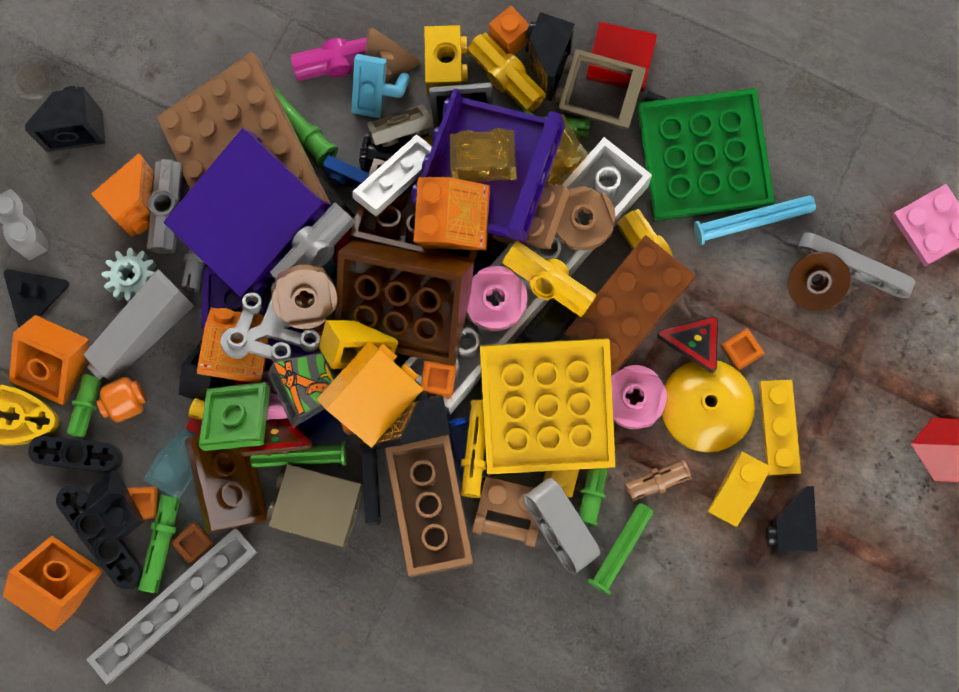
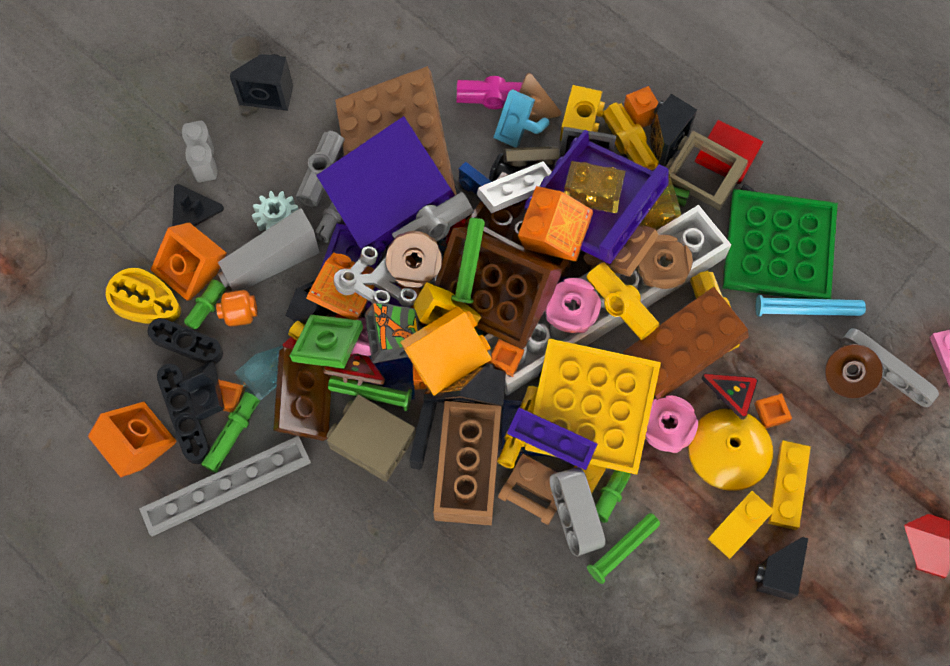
camera: 10 degrees right, 10 degrees down
(127, 195) = (292, 149): orange slope -> none
(193, 543) = (258, 439): dark orange tile -> none
(308, 135) = (455, 145): bright green pin -> none
(367, 286) = (469, 261): none -> bright green axle
(513, 456) = (552, 438): none -> dark purple plate
(549, 323) = (616, 339): black tile -> none
(658, 481) = (671, 499): medium nougat pin -> none

